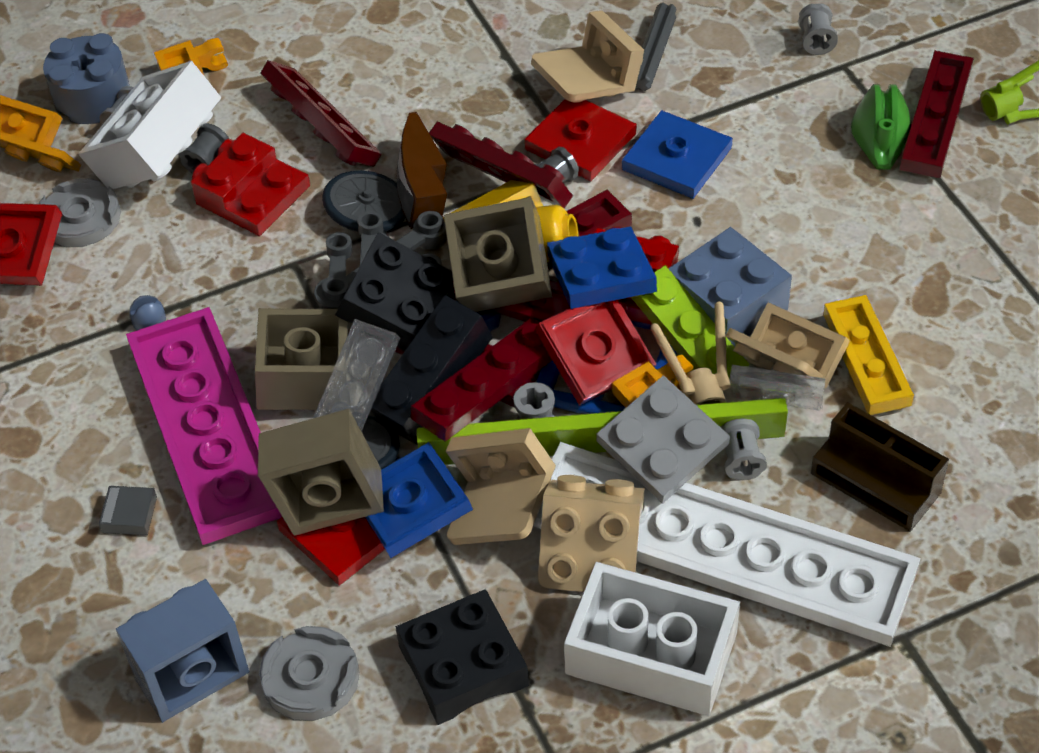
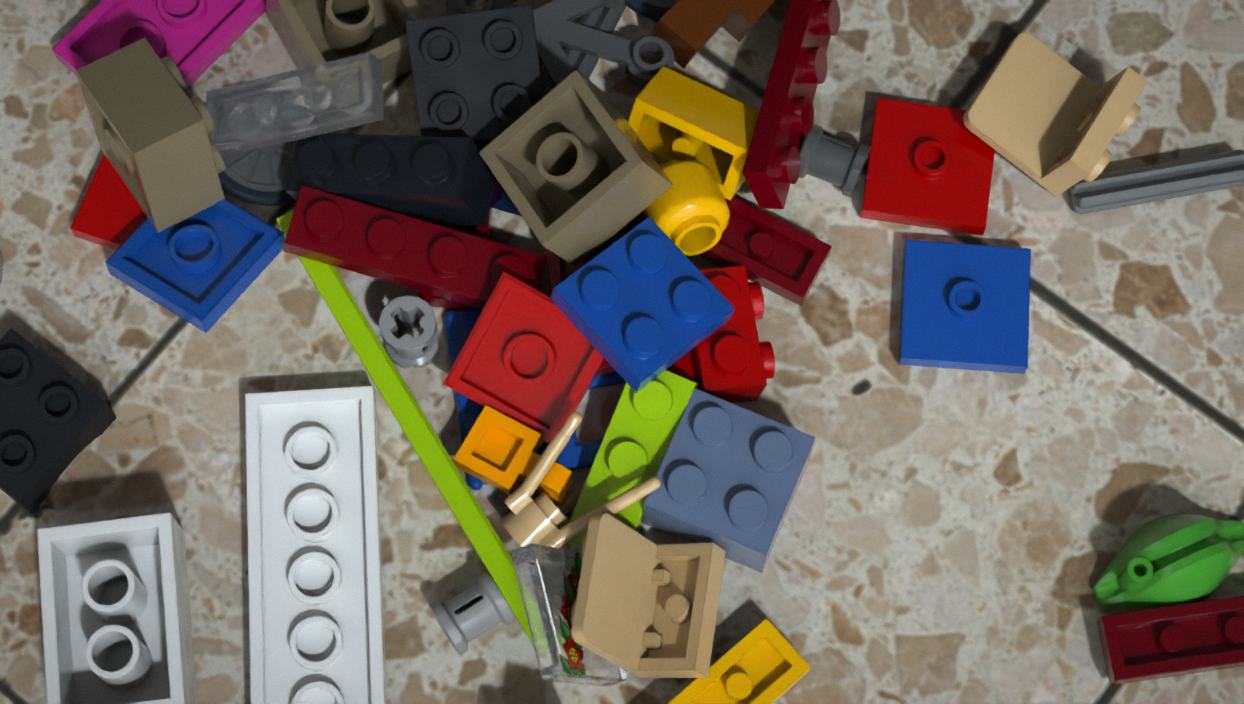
camera: 60 degrees right, 20 degrees up
(504, 485) = (254, 353): tan bracket -> none
(587, 526) = (245, 481): tan bracket -> none
(663, 439) = (410, 508): light grey plate -> none

